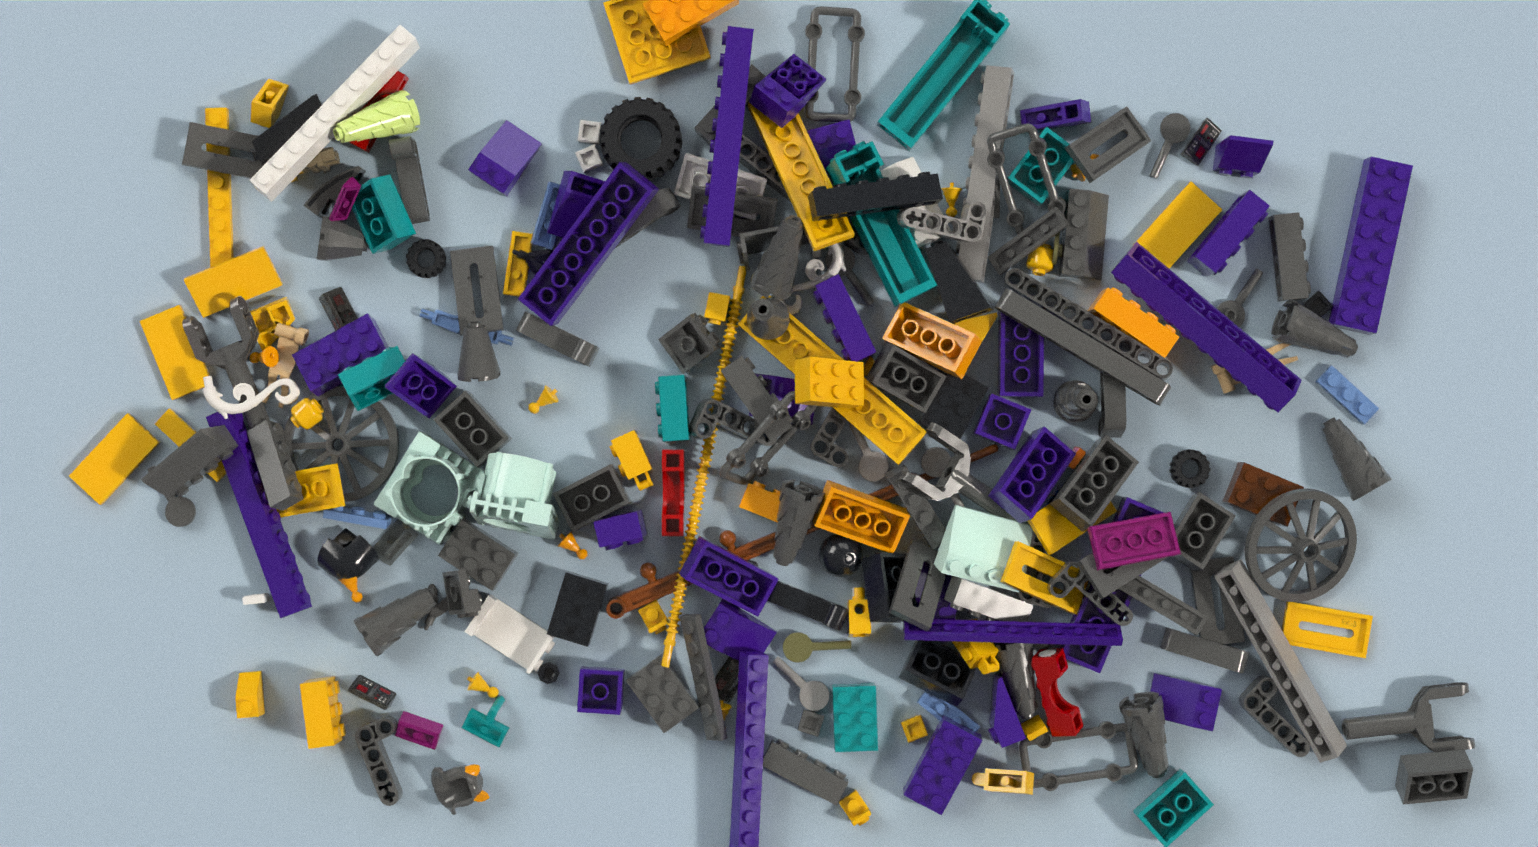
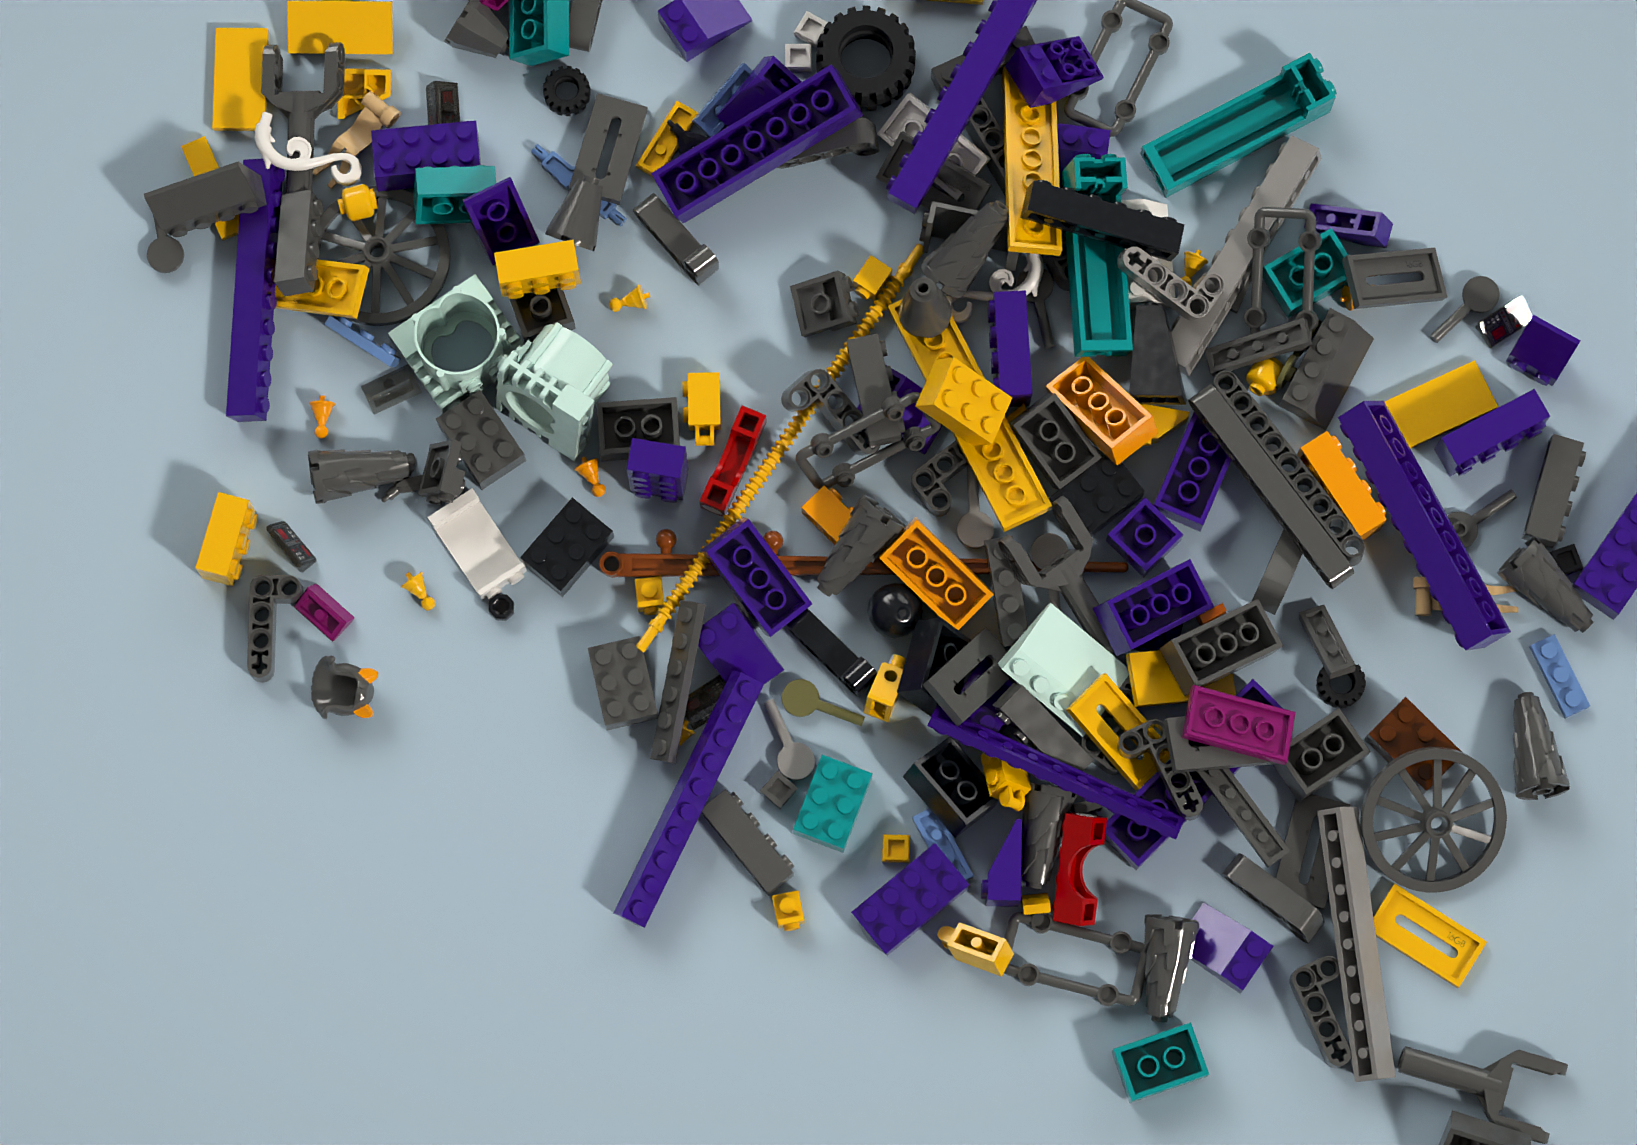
camera: 25 degrees right, 10 degrees down
(114, 459) = (118, 167): yellow tile -> none
(250, 695) = (151, 490): yellow slope -> none
(256, 598) = (206, 385): white tile -> none
(268, 356) = (342, 123): light orange piece -> none
(347, 556) = (332, 378): black brick -> none
(464, 414) = (537, 269): none -> yellow brick
(485, 725) = (403, 636): teal plate -> none
(600, 690) = (553, 649): dark purple brick -> none
(672, 408) = (773, 366): teal brick -> none
(1075, 401) = (1239, 552): dark grey cone -> none
(1169, 444) = (1327, 641): none -> dark grey plate

